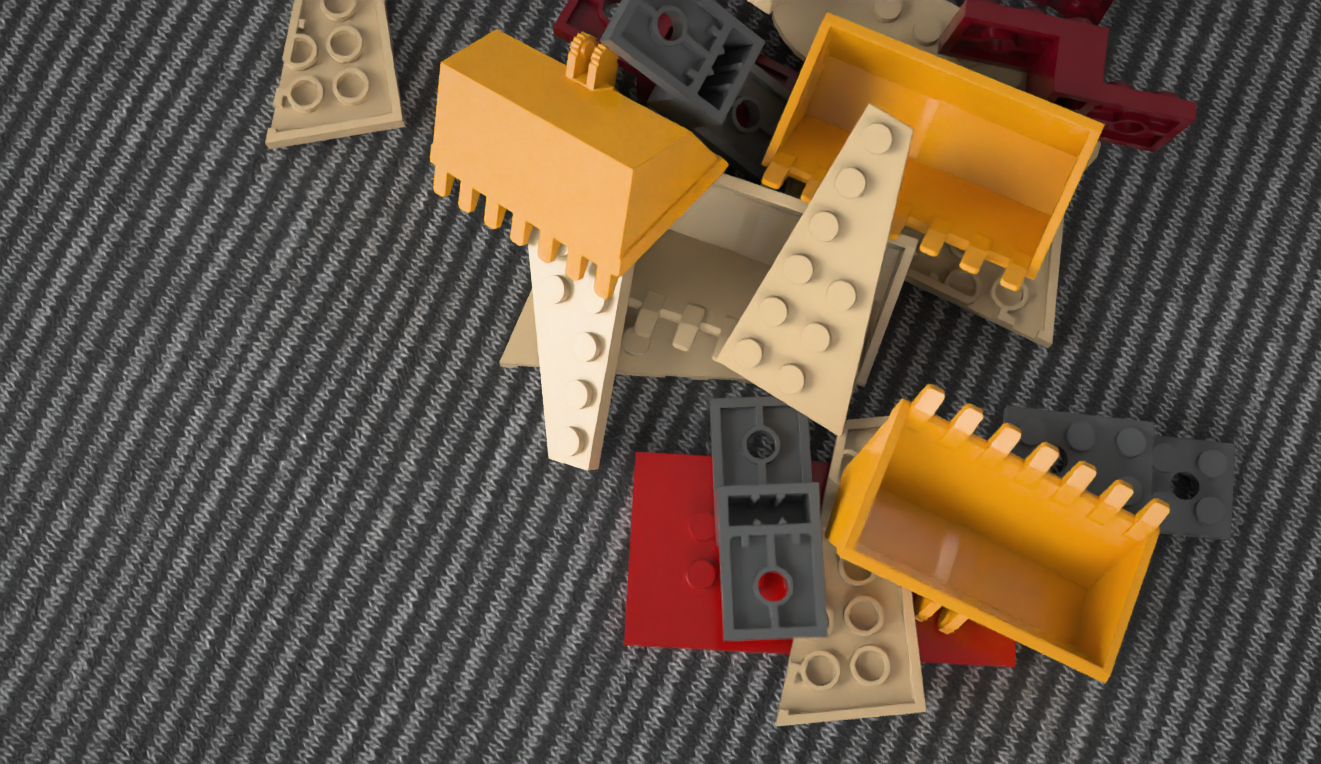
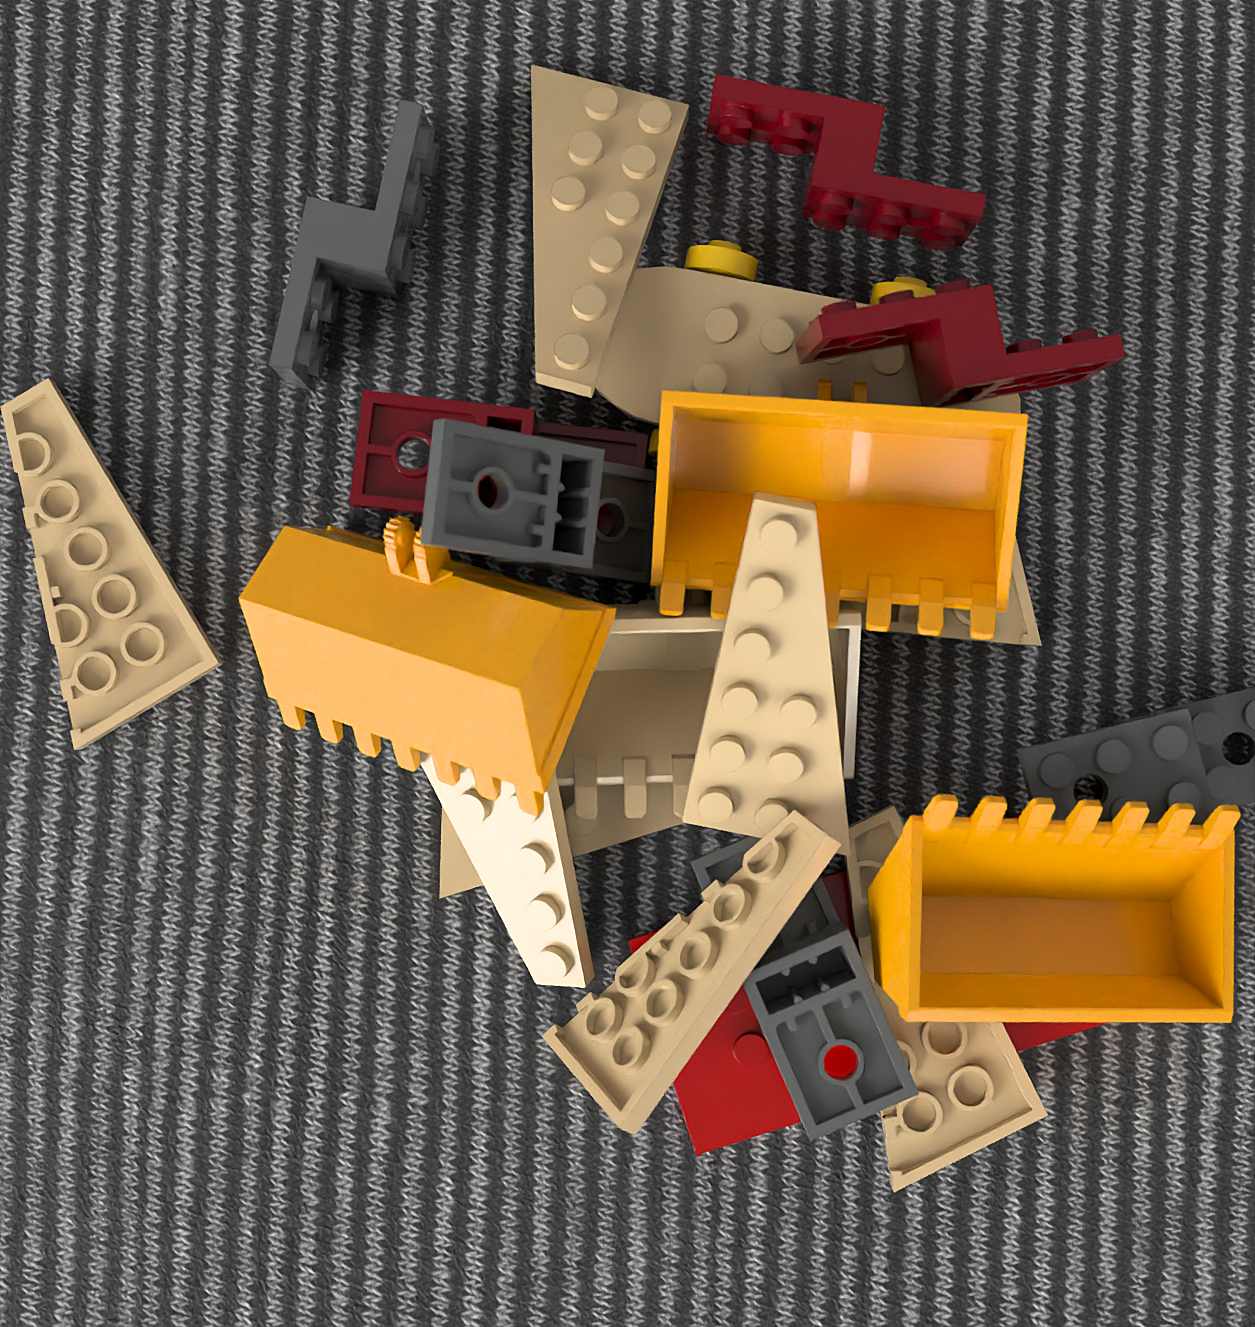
camera: 20 degrees left, 10 degrees up
(673, 478) = (679, 982): none -> tan wing

